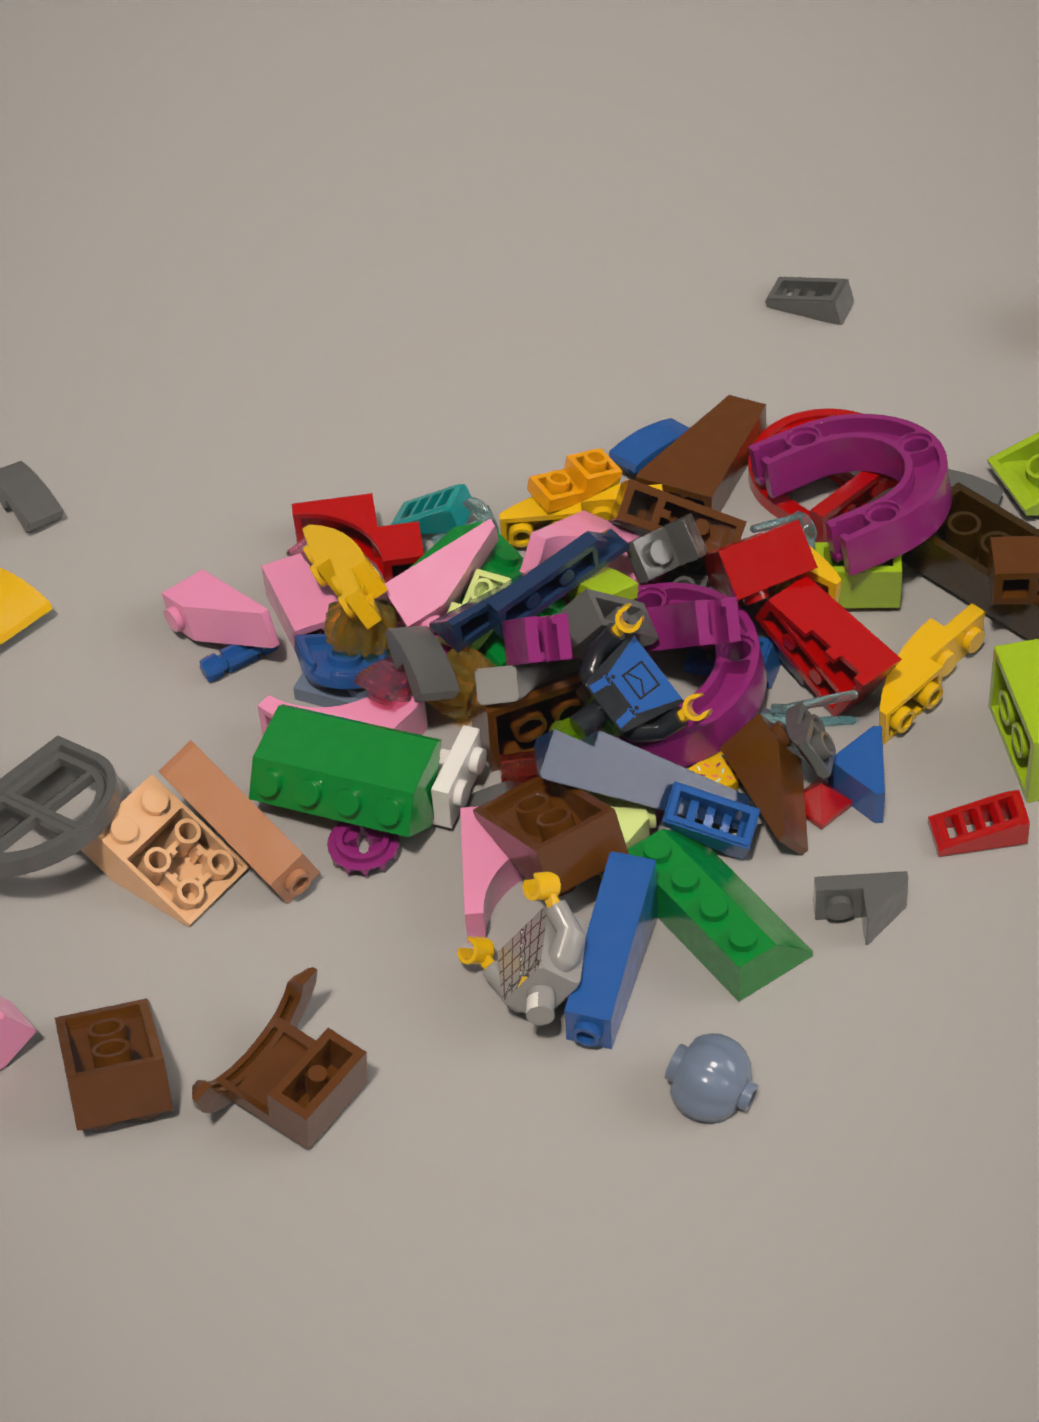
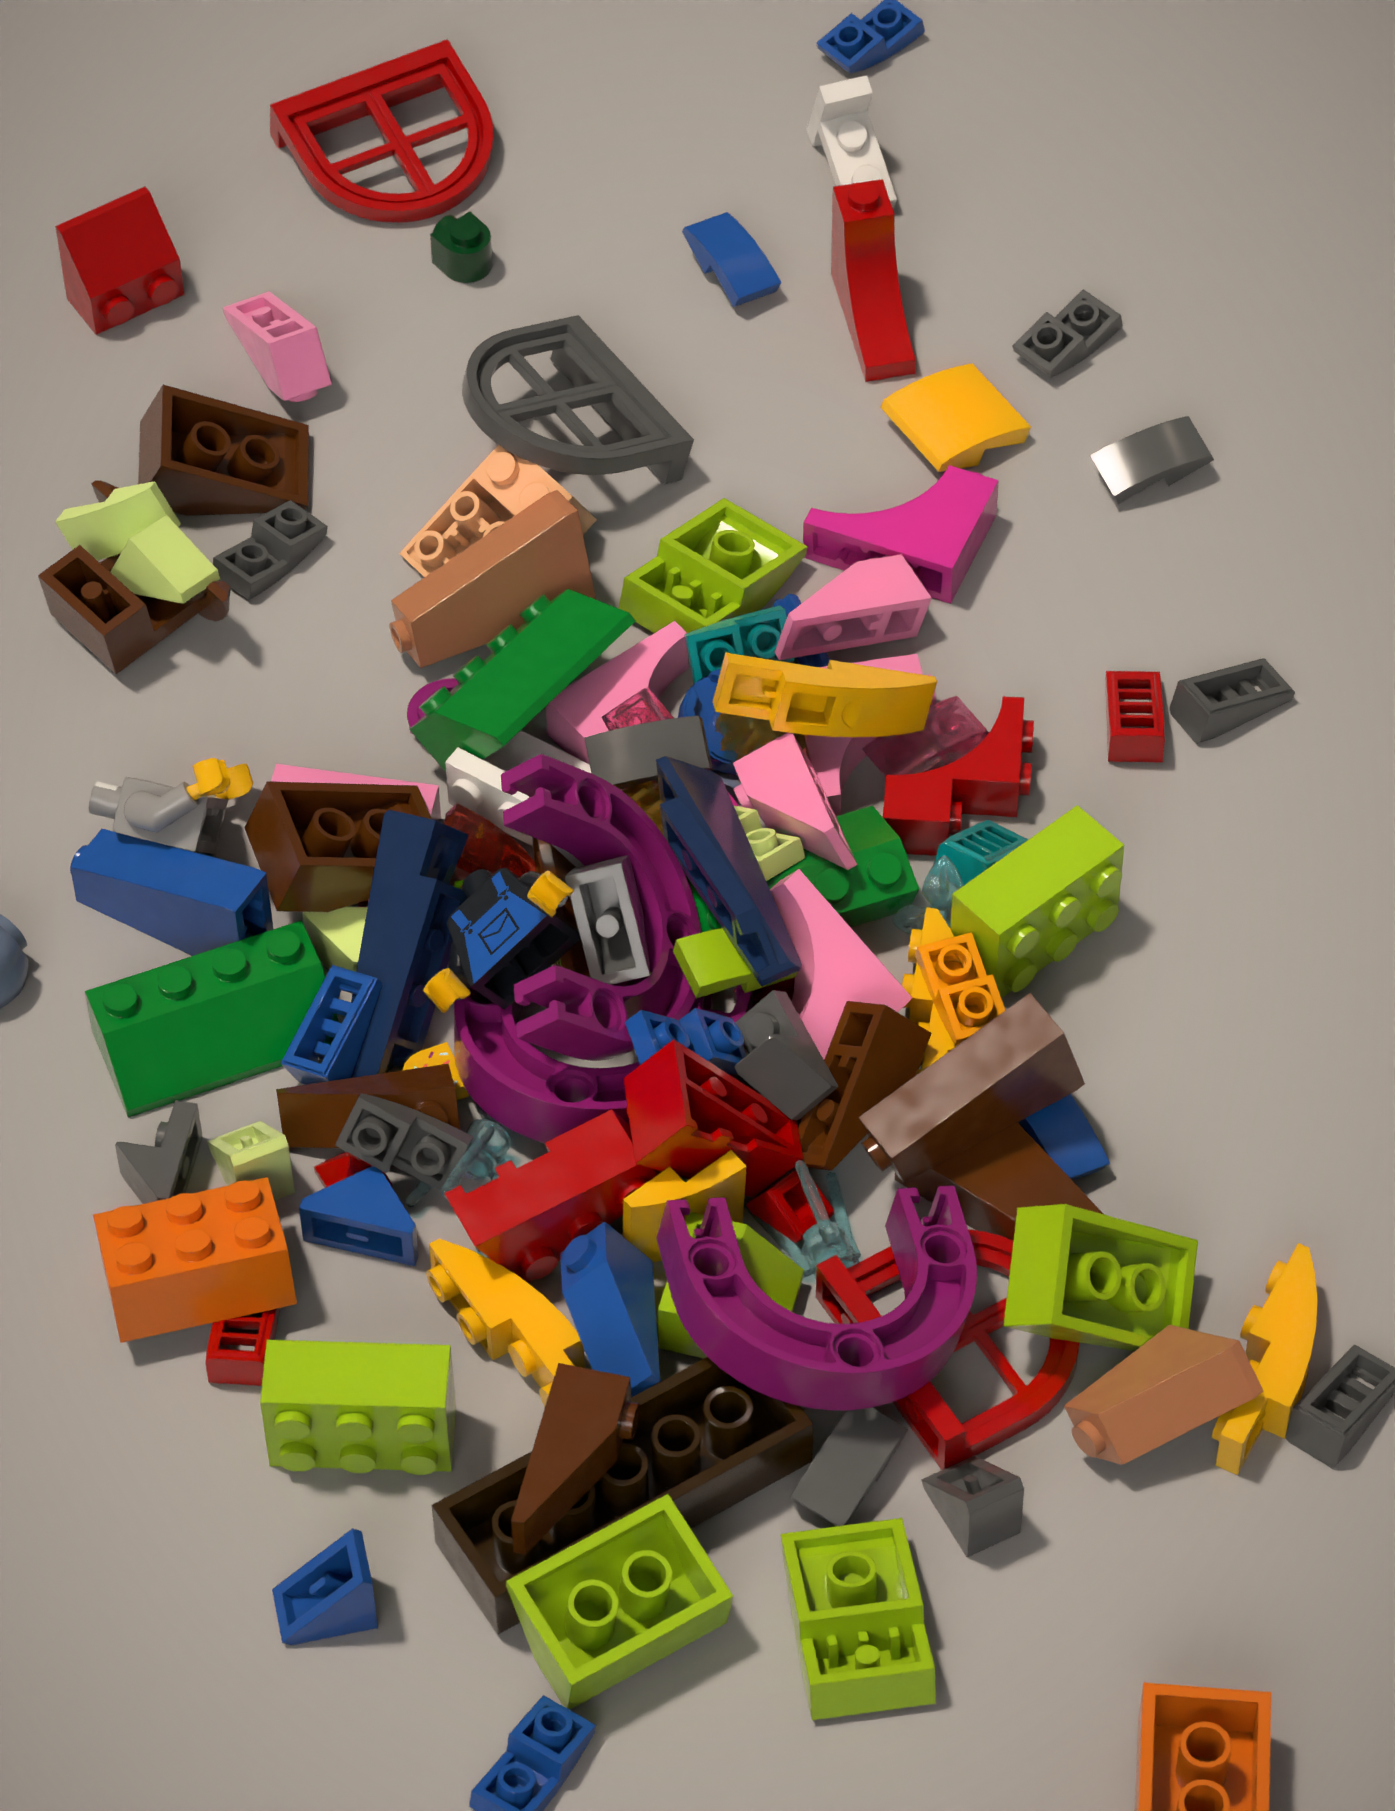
camera: 100 degrees right, 5 degrees up
(126, 597) = (932, 532): none -> dark pink arch
(189, 703) = (711, 570): none -> lime slope
(200, 1008) = (275, 548): none -> dark grey slope
(224, 1065) = (108, 525): none -> yellowish green slope
(252, 432) = (1206, 719): none -> dark grey slope
(258, 670) = (746, 635): none -> teal slope
(275, 1035) = (164, 564): none -> yellowish green slope
(285, 465) = (1134, 743): none -> red slope
(475, 452) = (1041, 899): none -> lime brick
(672, 441) = (973, 1092): none -> reddish brown slope
(686, 582) = (703, 1032): none -> blue slope
(789, 318) = (1280, 1353): none -> yellow slope
(791, 385) = (1097, 1277): none -> lime slope
(839, 846) = (255, 1154): none -> yellowish green slope
(851, 351) = (1161, 1393): none -> nougat slope
(915, 600) = (613, 1305): none -> blue slope
(950, 847) = (195, 1259): none -> orange brick
(963, 423) = (977, 1503): none -> dark grey slope

